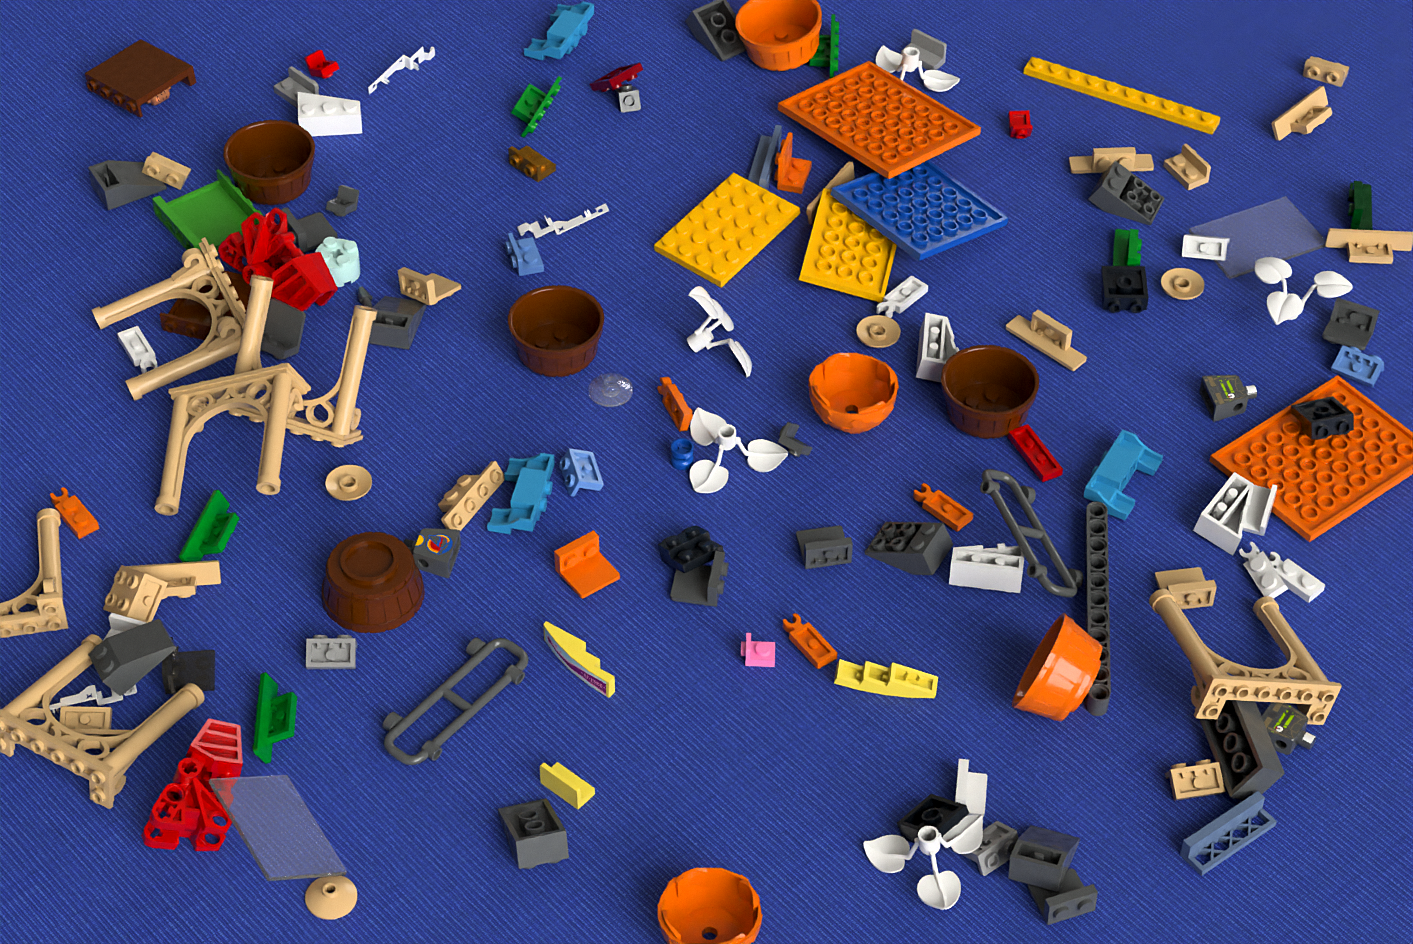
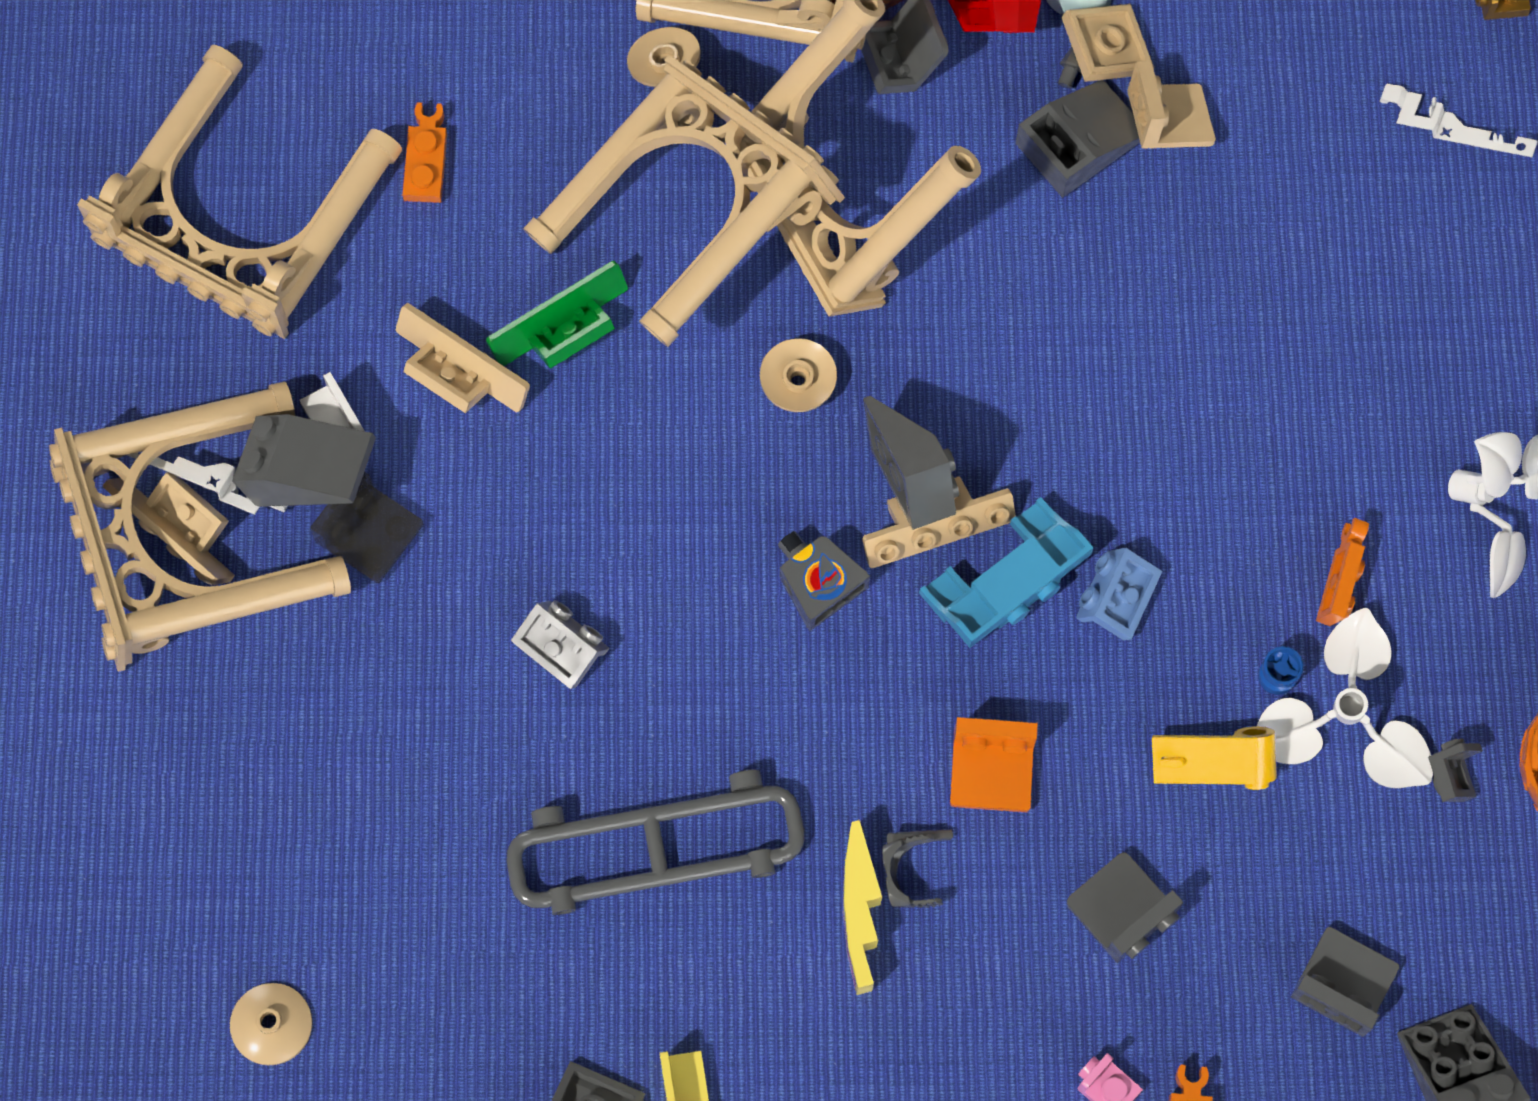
camera: 40 degrees right, 25 degrees up
(135, 594) = (380, 366): tan bracket -> none
(158, 405) = (649, 51): none -> tan dish
(187, 800) = (271, 708): red piece -> none
(274, 717) = (409, 691): green bracket -> none
(277, 827) = (270, 879): clear piece -> none
(371, 583) = (694, 576): reddish brown piece -> none
(373, 280) = (1105, 41): none -> tan tile
(437, 471) = (912, 464): none -> dark grey slope
(524, 255) = (1353, 147): medium blue bracket -> none
(556, 329) = (1272, 327): reddish brown piece -> none
(592, 643) = (897, 845): none -> dark grey helmet
(610, 390) = (1280, 491): clear dish -> none
(685, 501) = (1213, 759): none -> yellow door
(688, 549) = (1151, 848): black plate -> none

